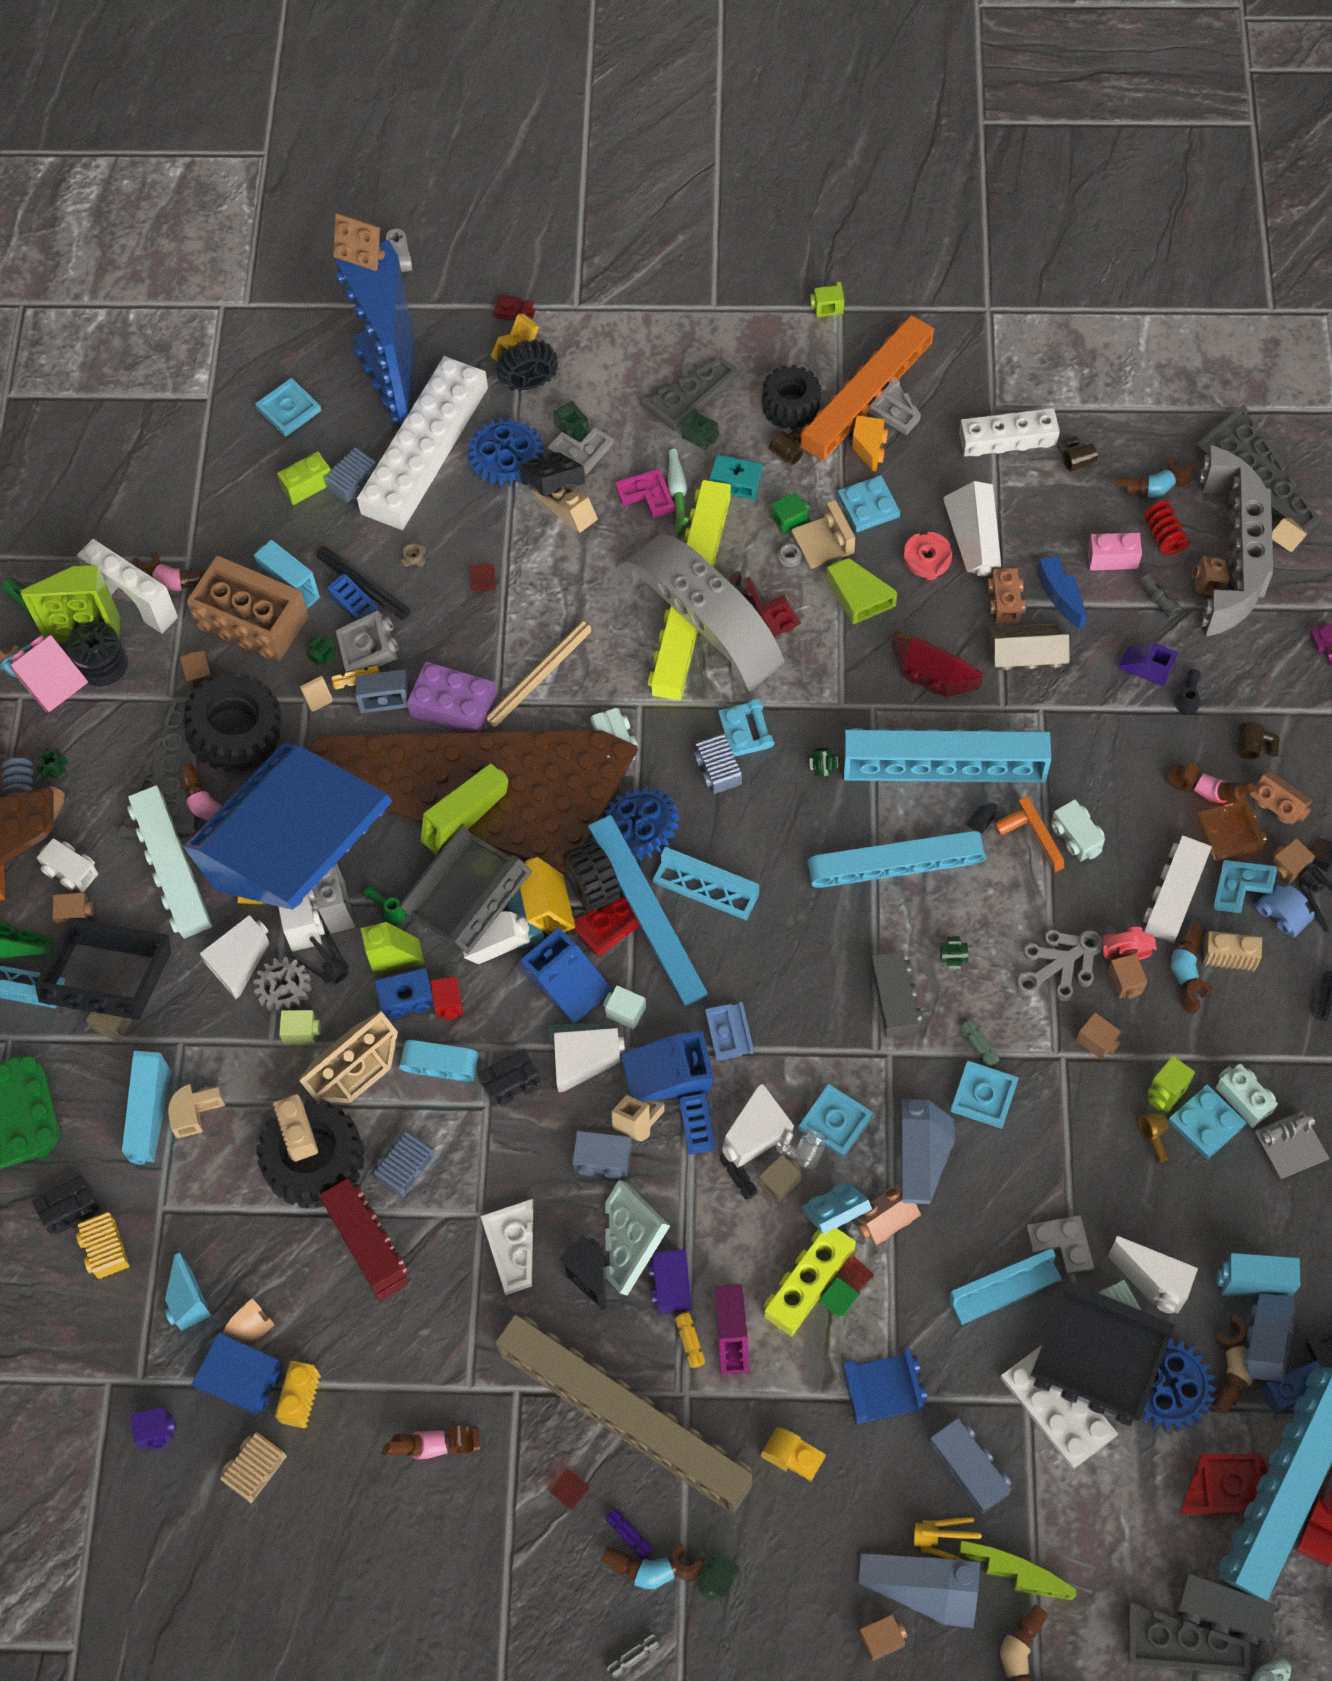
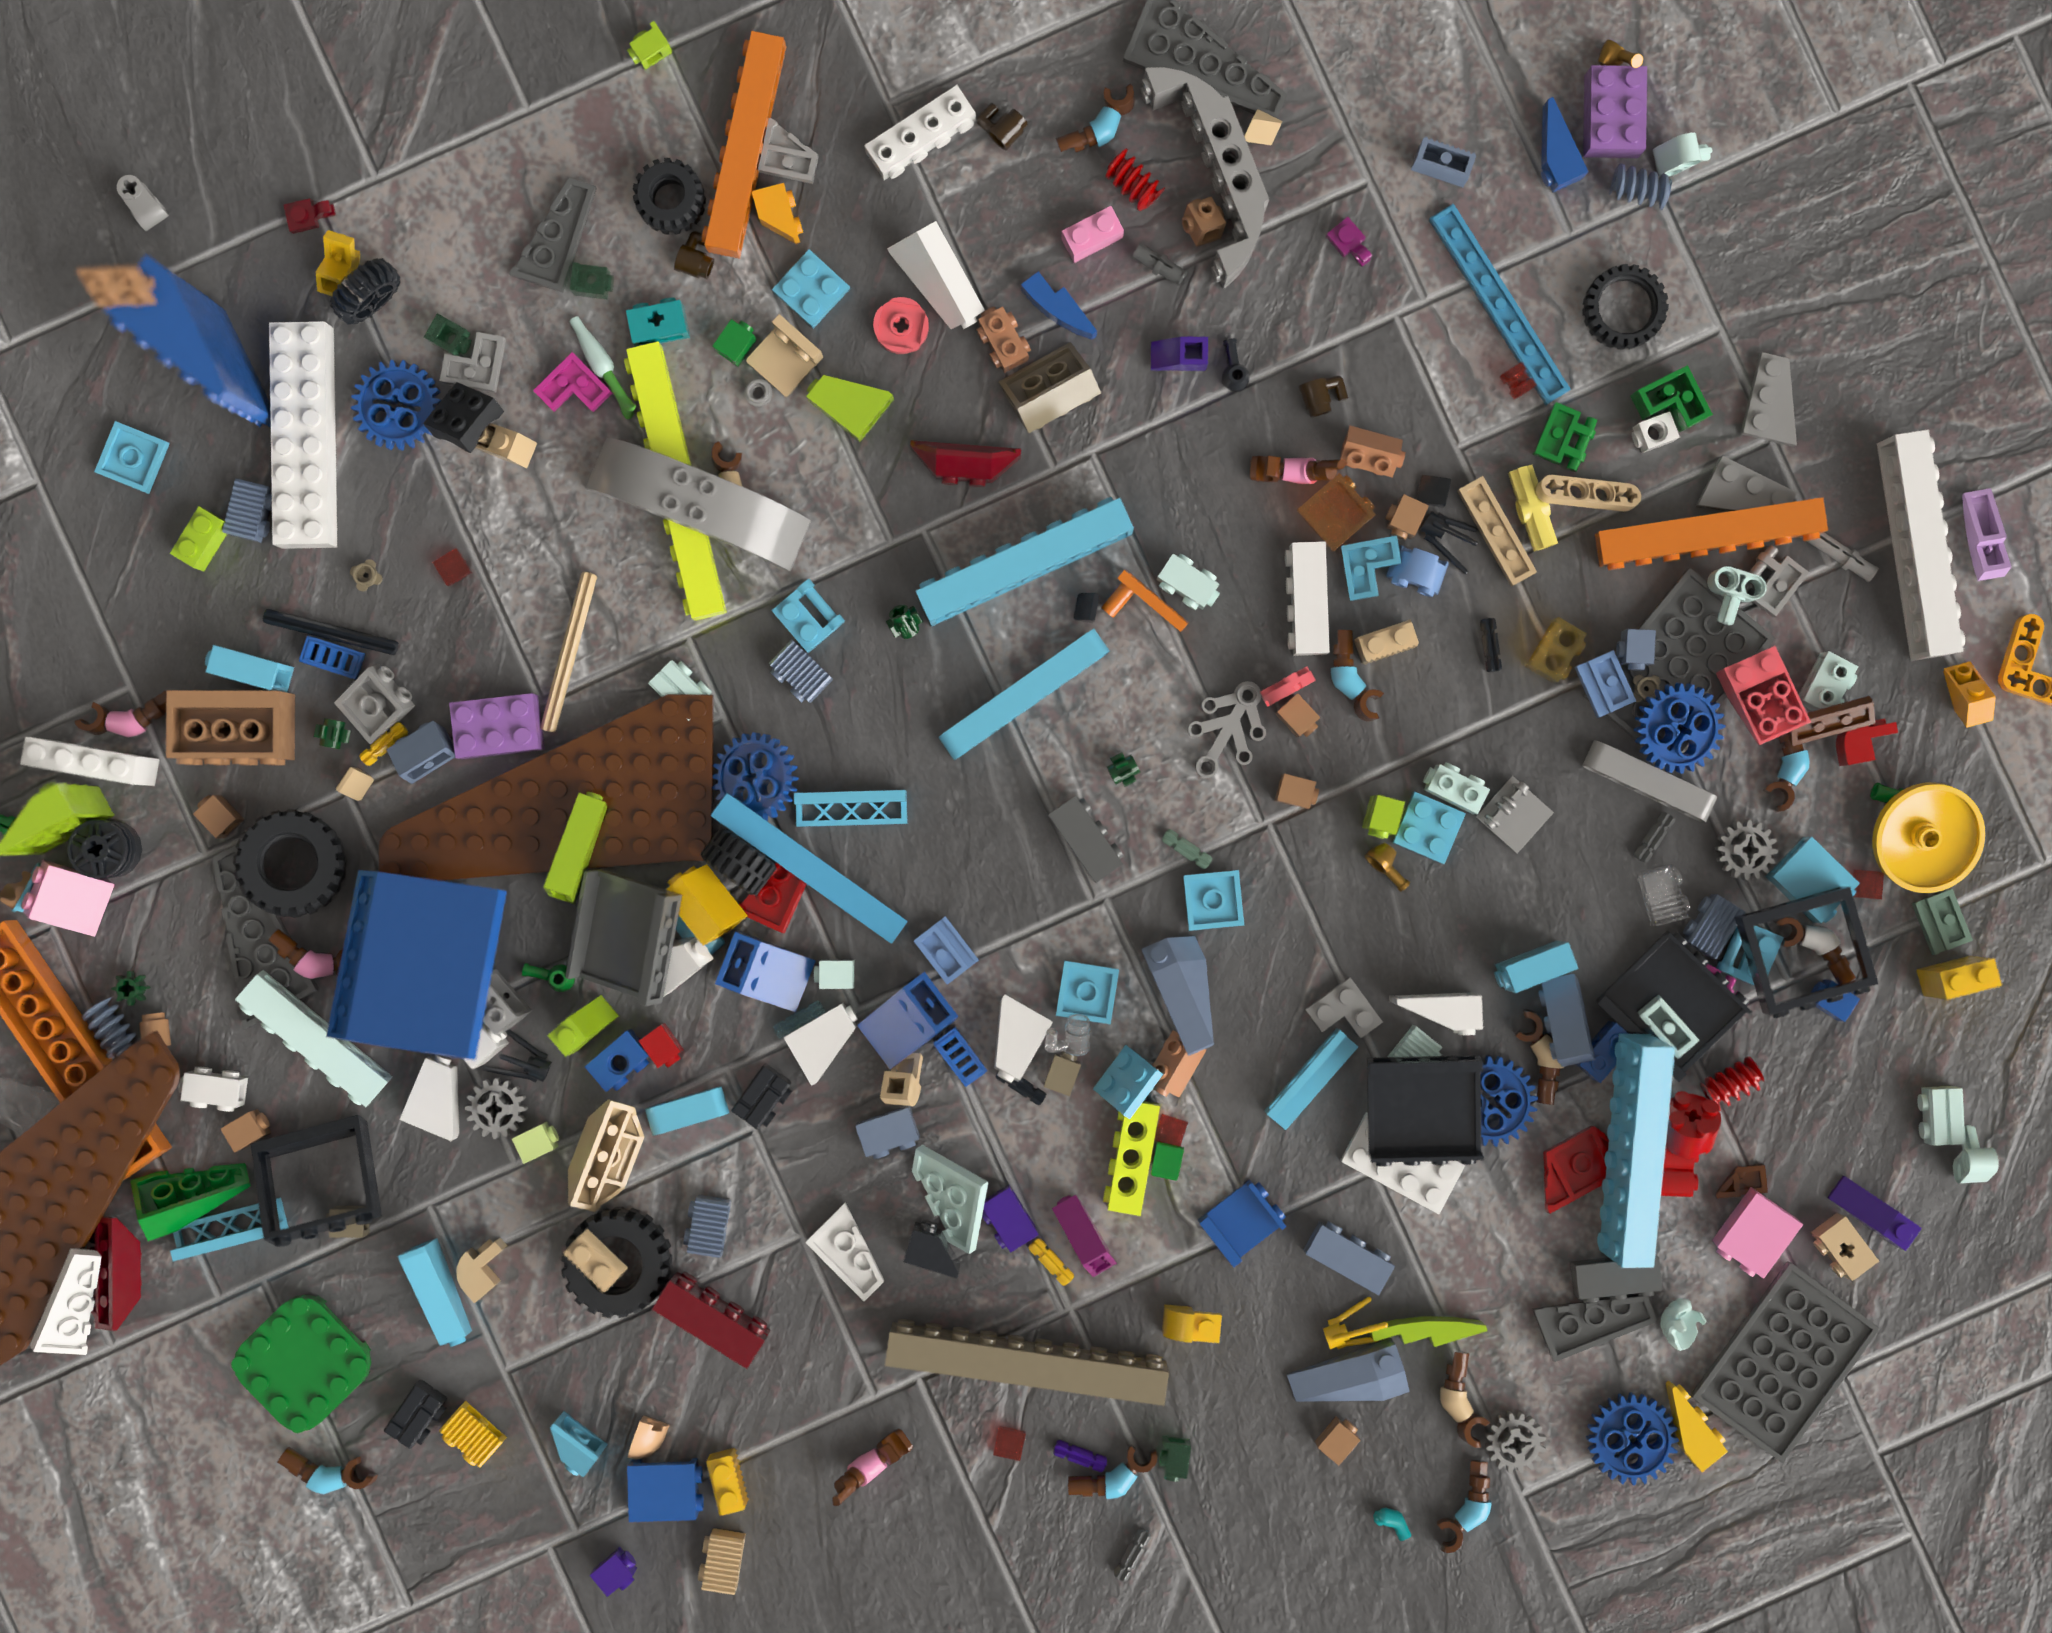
camera: 25 degrees left, 25 degrees up
(776, 614) = (785, 478): dark red bracket -> none

